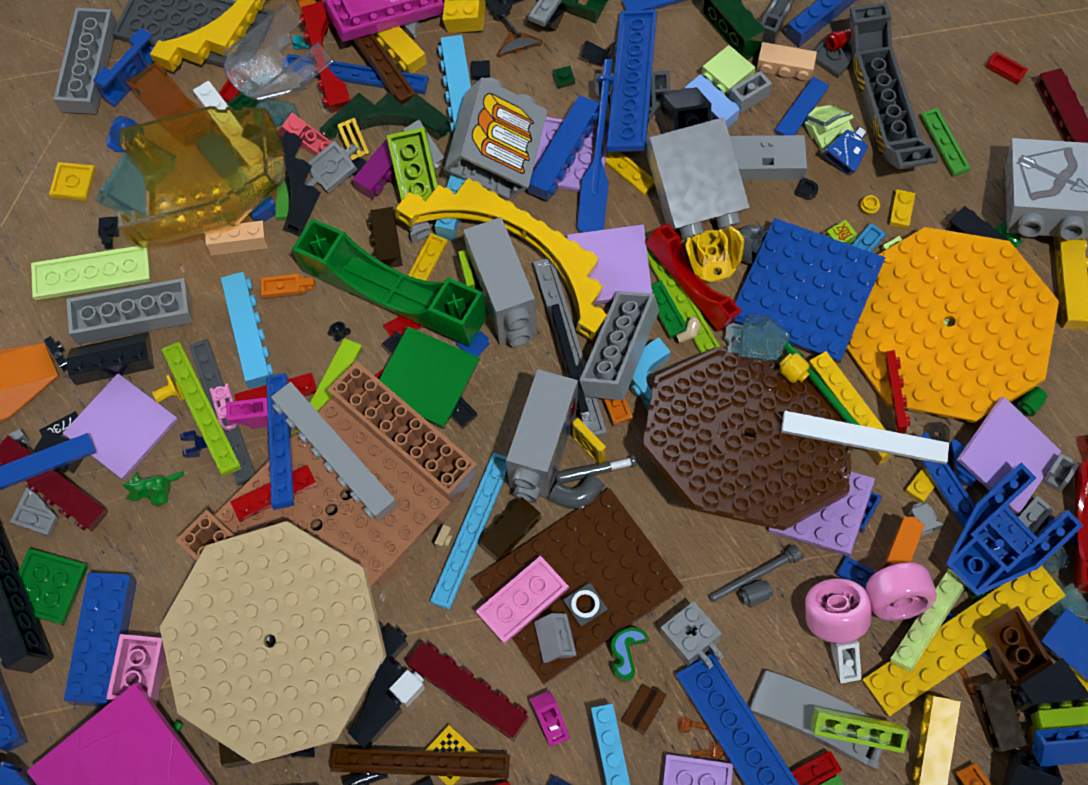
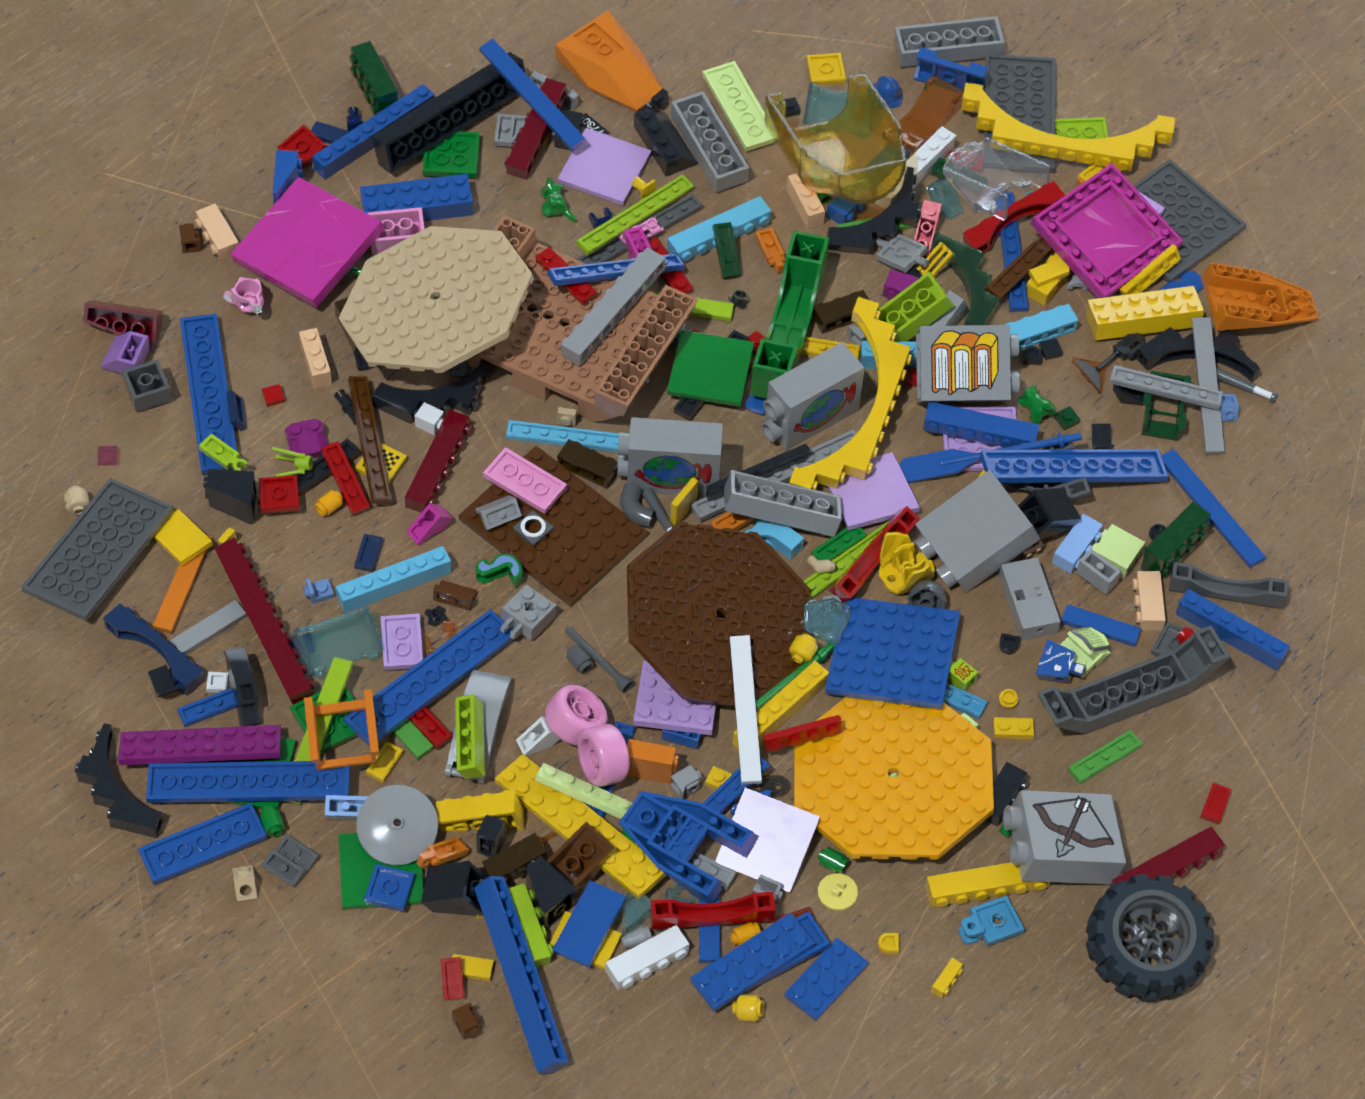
camera: 70 degrees right, 10 degrees down
(278, 326) = (726, 250): none -> dark green plate
(401, 43) = (1048, 272): none -> yellow tile
(549, 94) = (1036, 404): none -> green animal
(664, 741) = (435, 621): none -> black plate
(711, 36) = (1156, 530): none -> black plate
(972, 734) = (490, 836): none -> black brick
(1062, 408) = (837, 891): none -> light yellow piece

